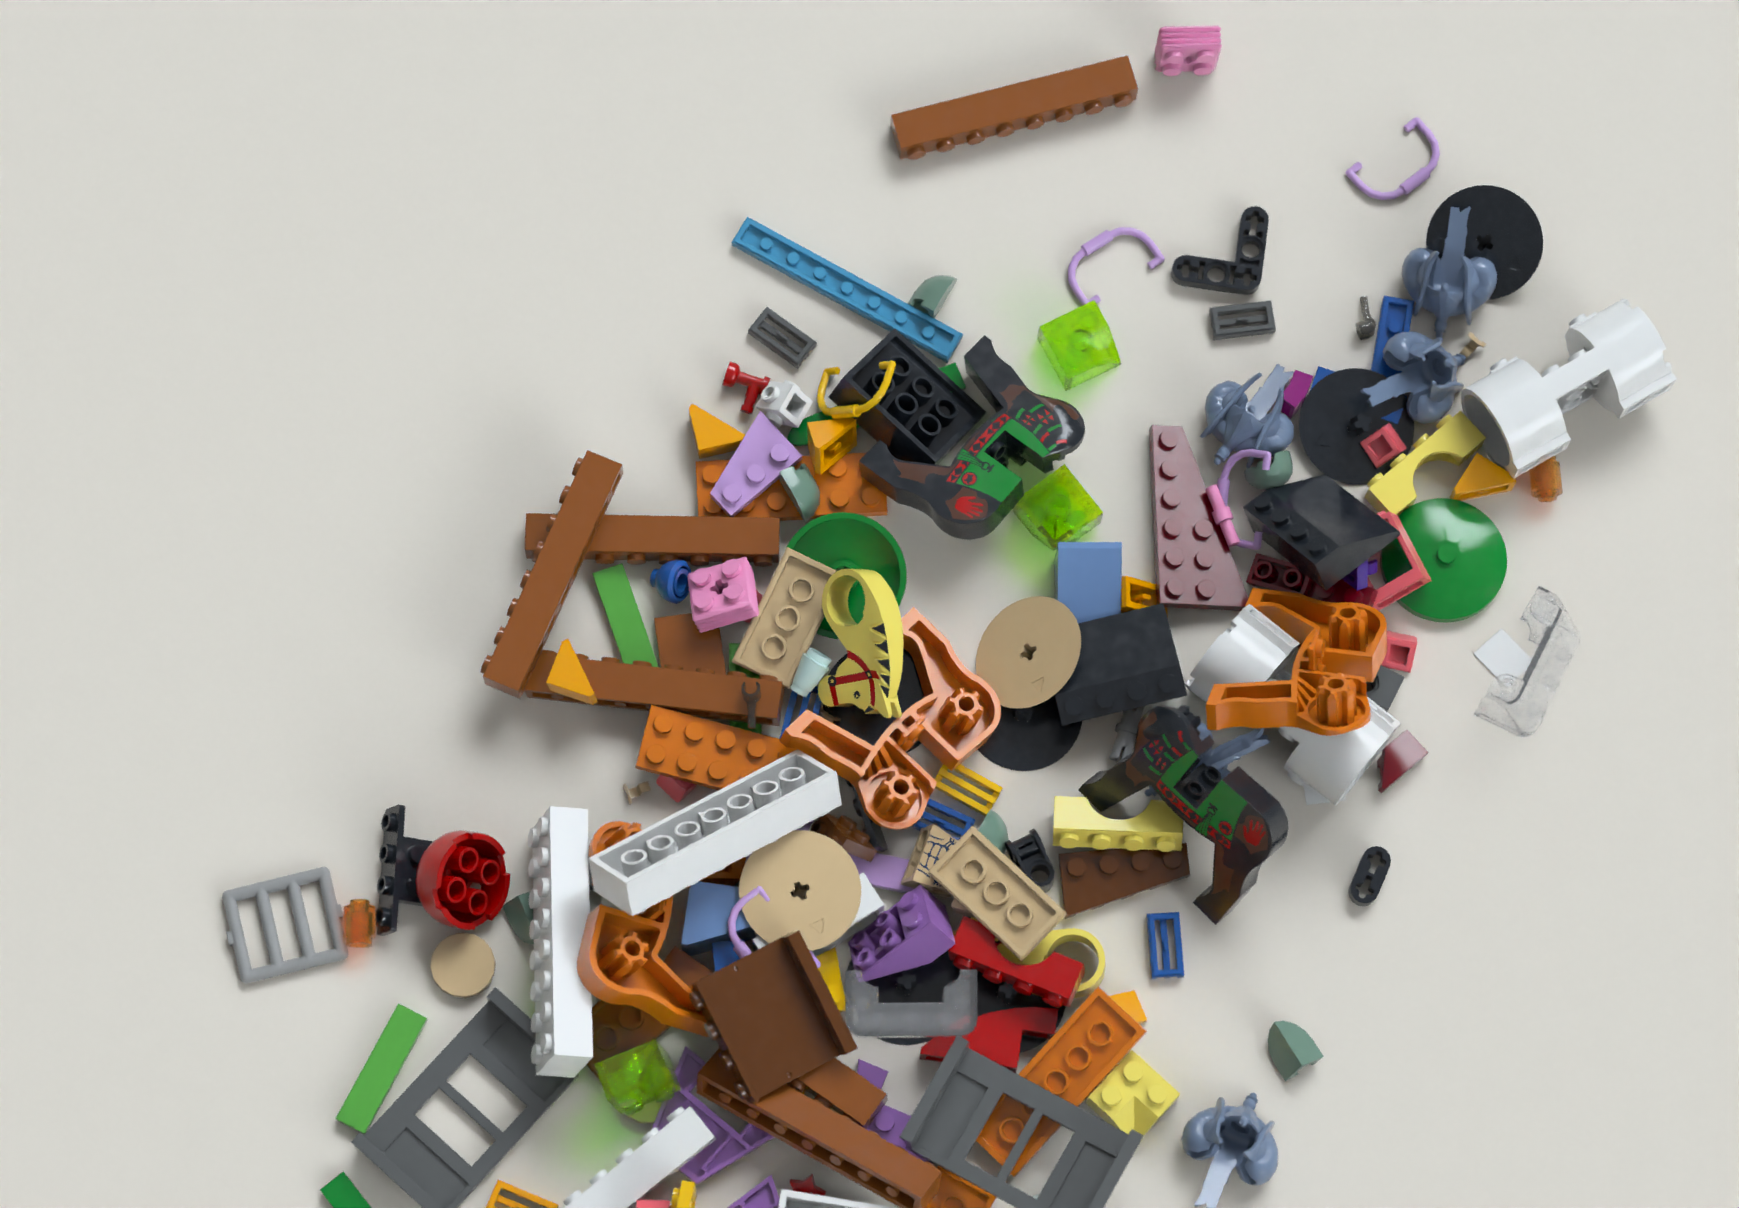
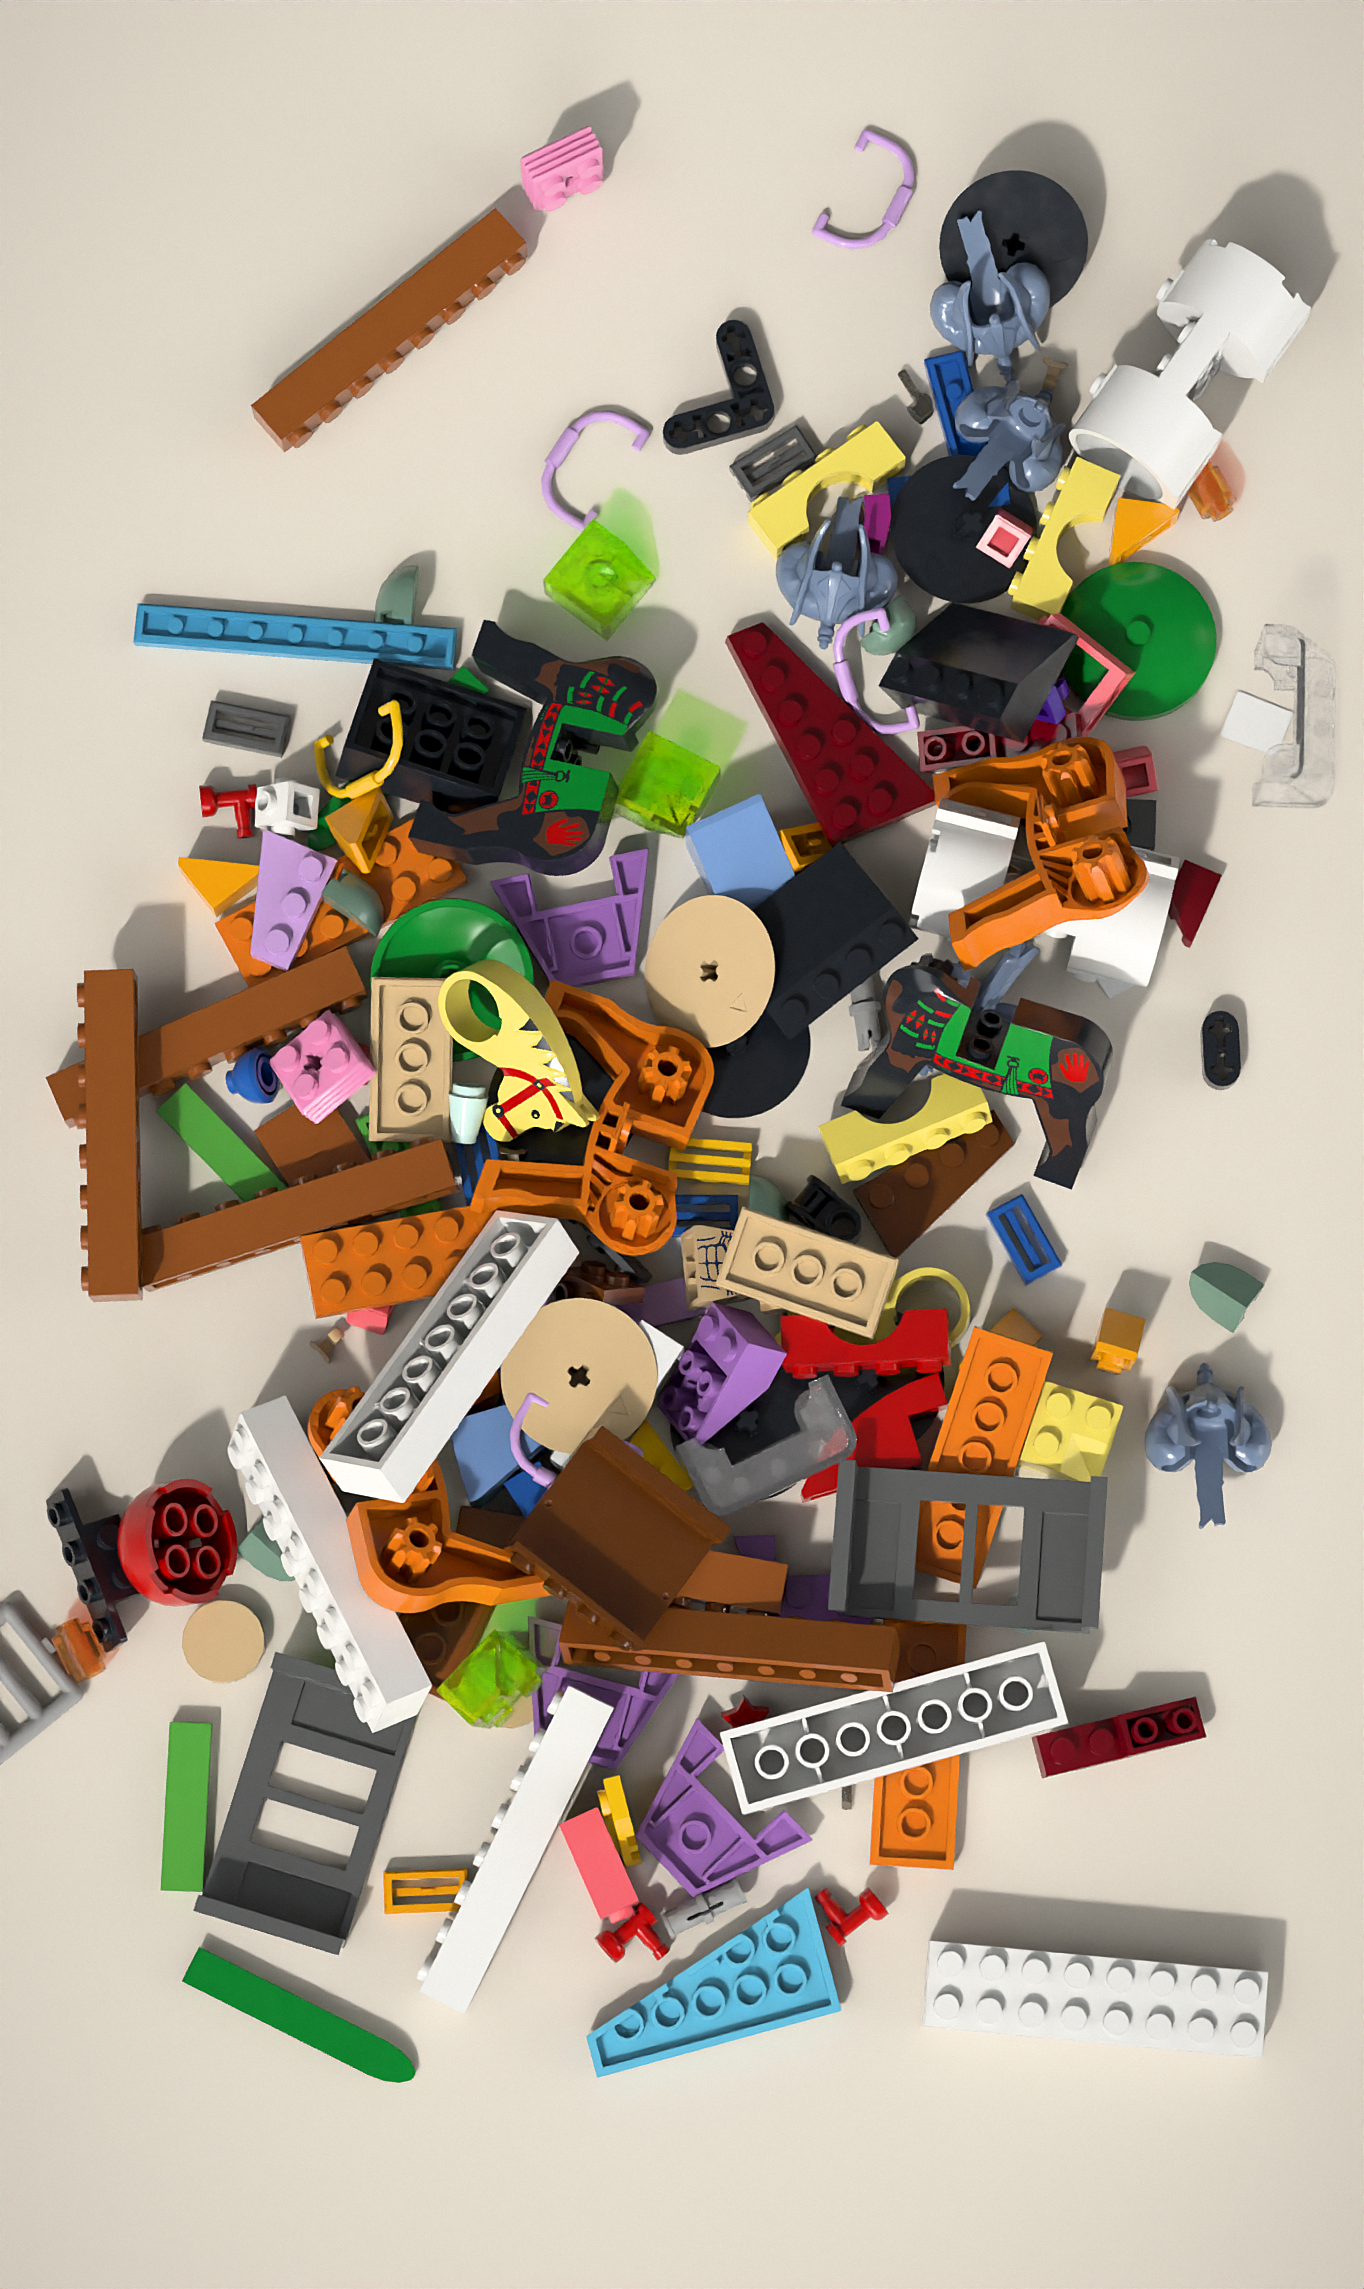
camera: 20 degrees left, 5 degrees up
(569, 677) = (188, 1248): light orange slope -> none
(751, 700) = (418, 1182): clear smoke hand -> none
(951, 591) = (586, 939): none -> medium lavender wing
(1197, 1047) = (1117, 1341): none -> light orange slope
(1222, 515) = (858, 706): bright pink bar -> none
(1306, 345) = (863, 460): none -> light yellow arch

